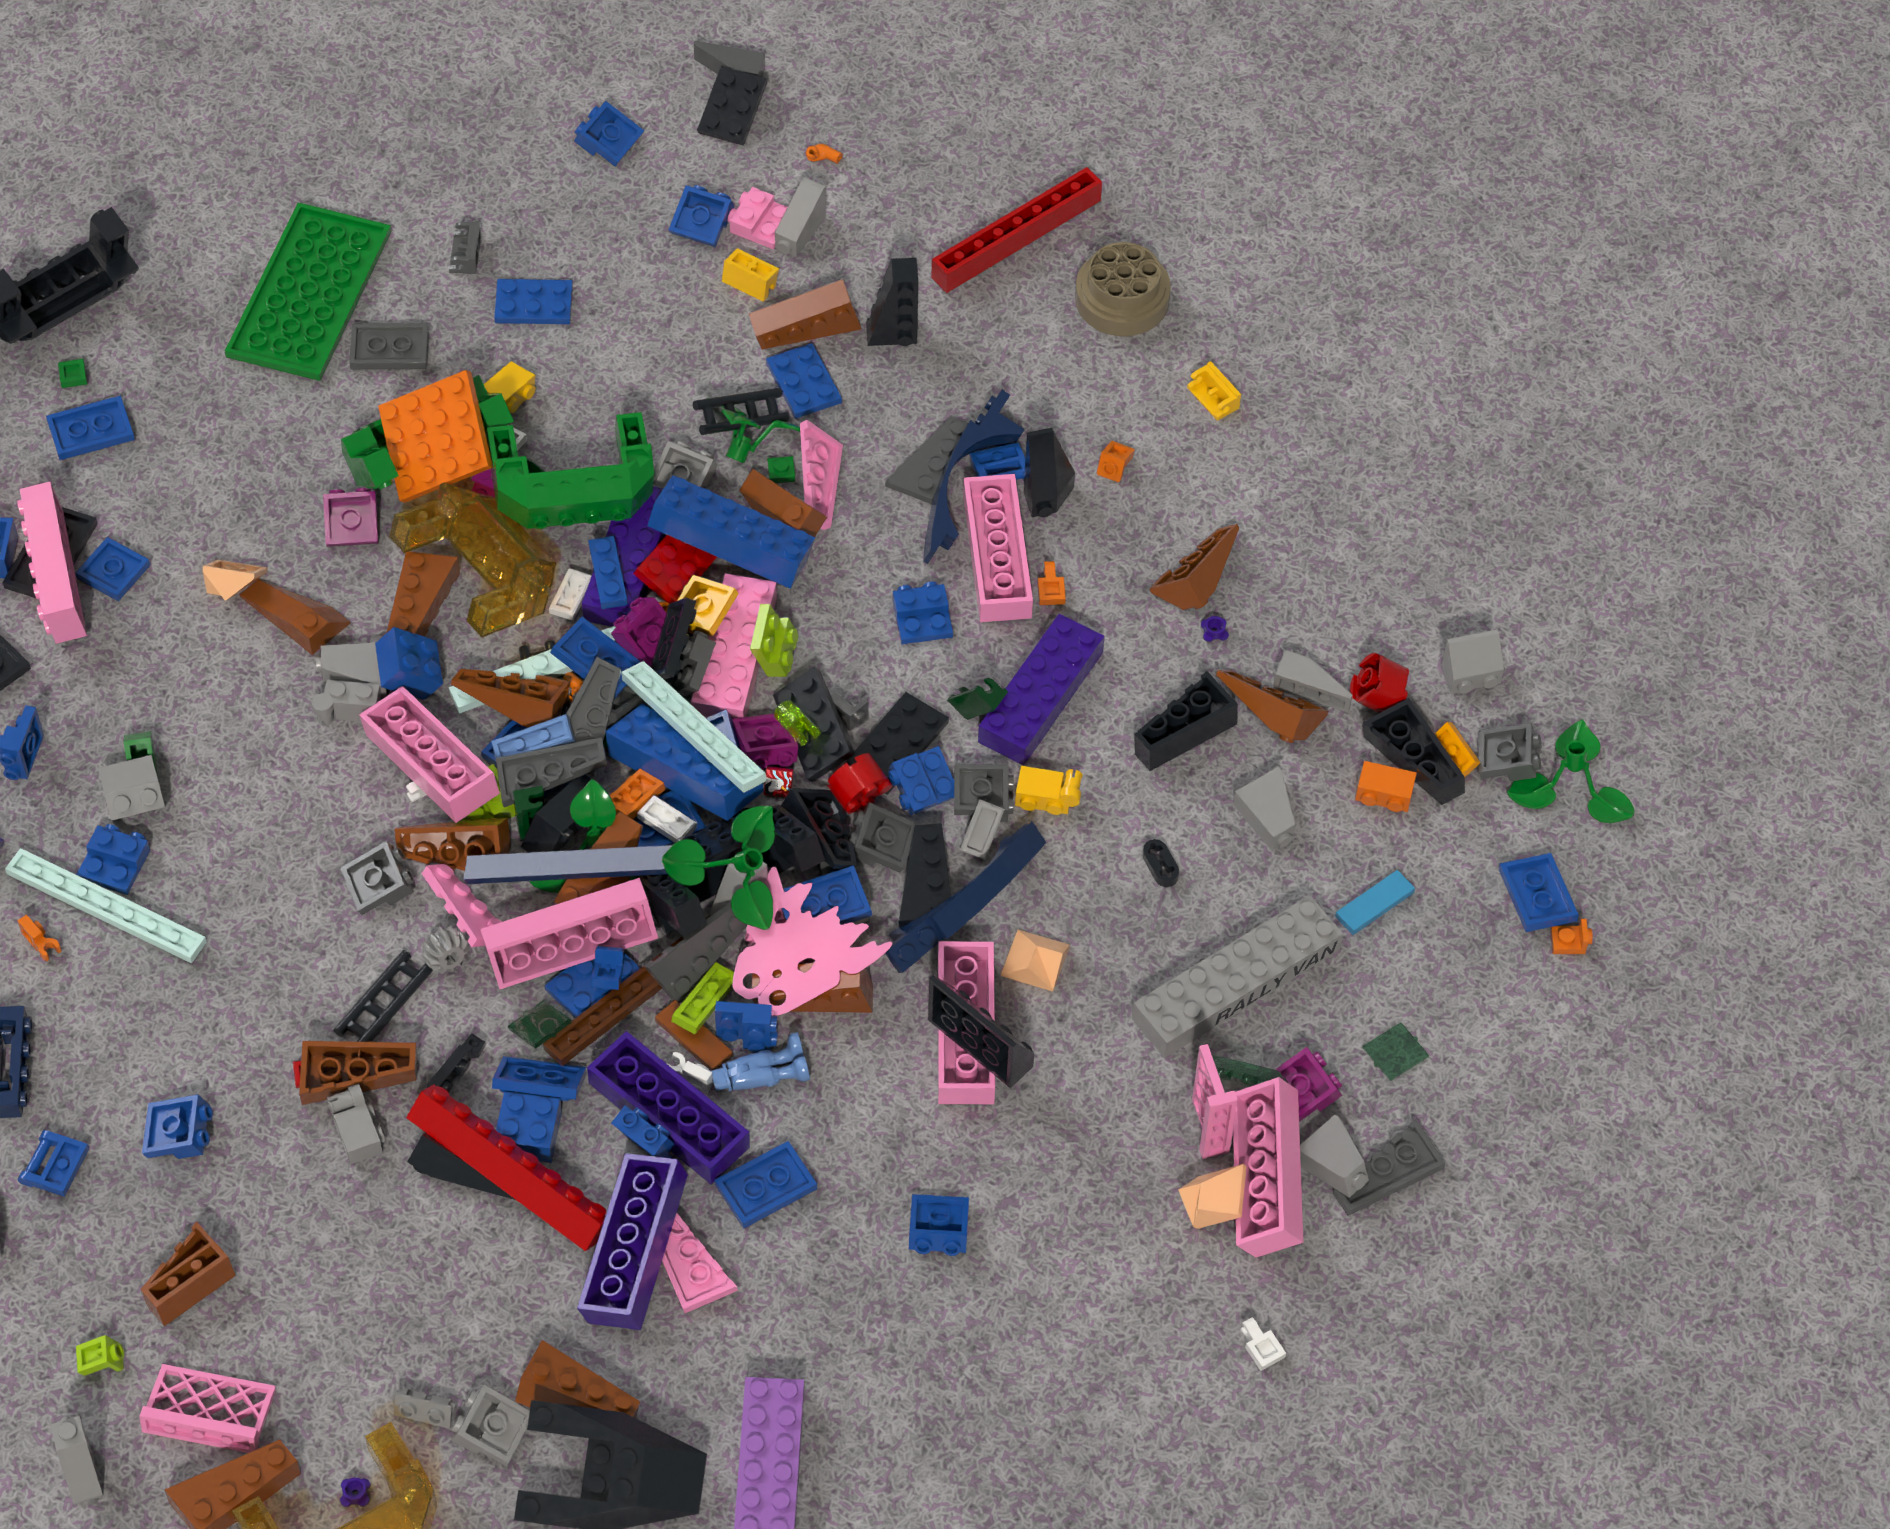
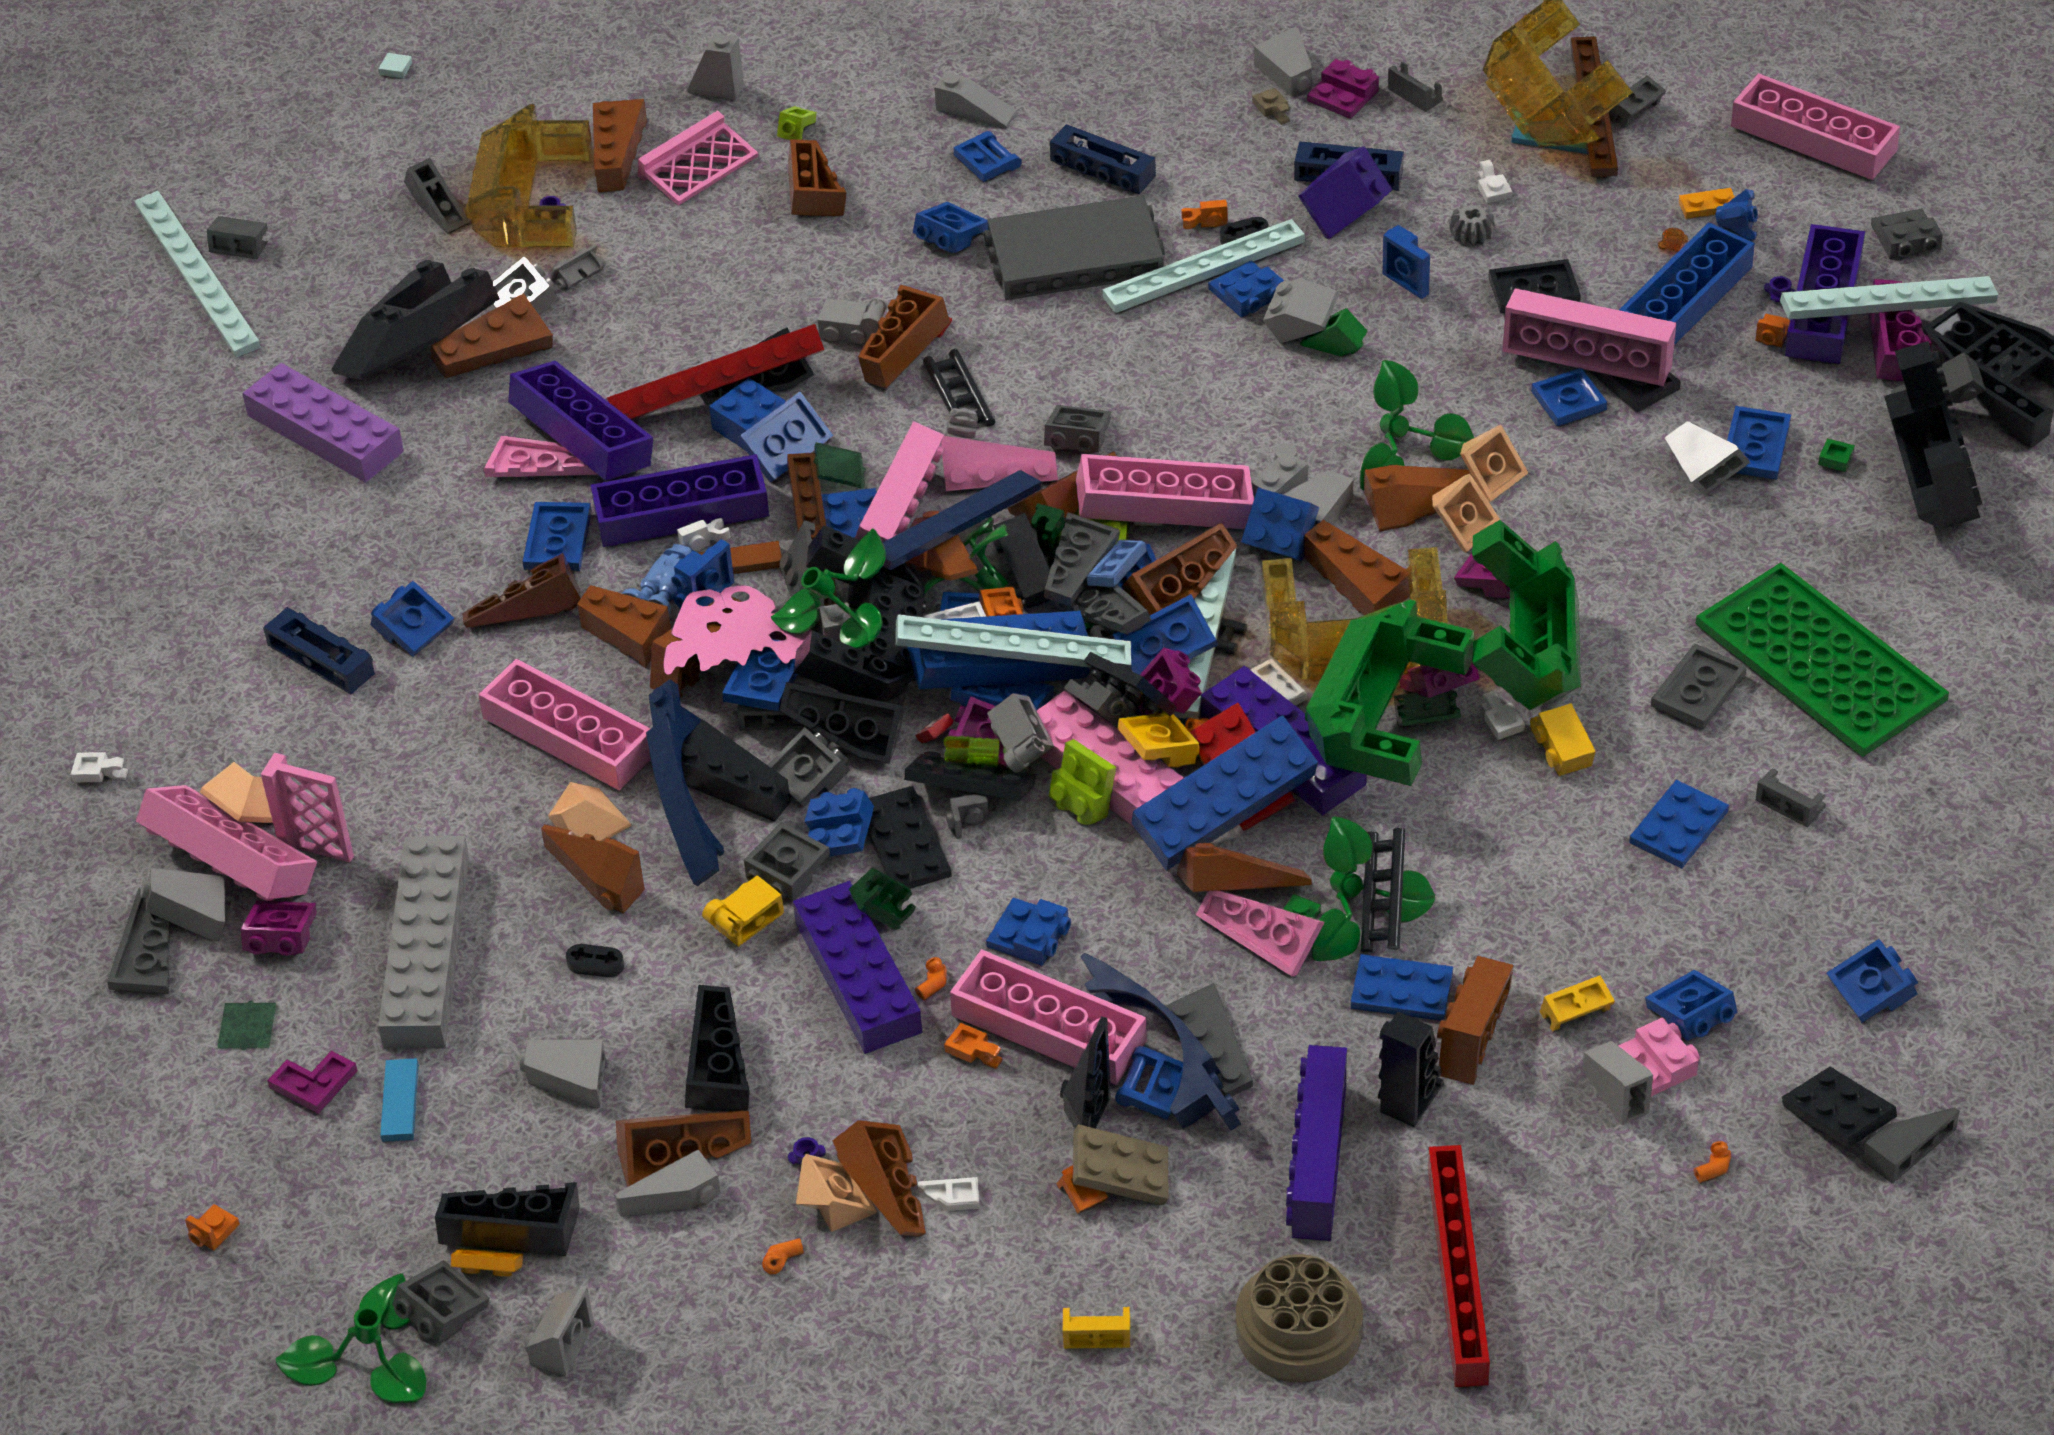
camera: 130 degrees right, 10 degrees down
(41, 899) = (1241, 228): none -> black beam
(137, 441) = (1705, 456): none -> slope
(146, 1012) = (1074, 247): none -> dark grey panel
(230, 656) = (1392, 390): none -> green plant
(301, 568) = (1464, 510): none -> light nougat slope
(435, 436) = (1504, 603): orange plate -> none
(458, 1062) = (850, 400): black hinge -> none
(607, 572) = (1257, 688): blue plate -> none
(607, 968) = (839, 513): blue bracket -> none
(649, 1138) = (660, 454): blue plate -> none
(683, 463) = (1359, 811): light grey plate -> none
(703, 998) = (760, 569): lime plate -> none
(760, 697) = (1020, 731): none -> light grey hinge
(828, 1056) = (623, 621): none -> dark orange wedge
(847, 1154) = (544, 593): none -> reddish brown wedge
(858, 783) = (869, 764): red brick -> none
(978, 1033) = (522, 675): black slope -> none
(982, 829) = (745, 836): light grey tile -> none
(983, 340) = (1317, 1143): none -> dark purple brick
(1010, 644) = (935, 978): none -> orange arm
(1021, 1226) = (317, 647): none -> dark blue brick
(1087, 899) = (604, 868): none -> dark orange wedge
(1089, 439) = (1120, 1165): none -> dark tan plate
(1175, 530) = (952, 1193): none -> white tile
(1240, 583) = (833, 1191): none -> light nougat slope
(1248, 1073) = (324, 886): clear green plate -> none
(1305, 596) = (779, 1253): none -> orange arm
(1379, 683) = (607, 1227): red brick -> none
(1385, 786) = (505, 1168): orange brick -> none
(1410, 957) = (313, 1088): none -> magenta plate
(1538, 892) = (277, 1225): blue plate -> none

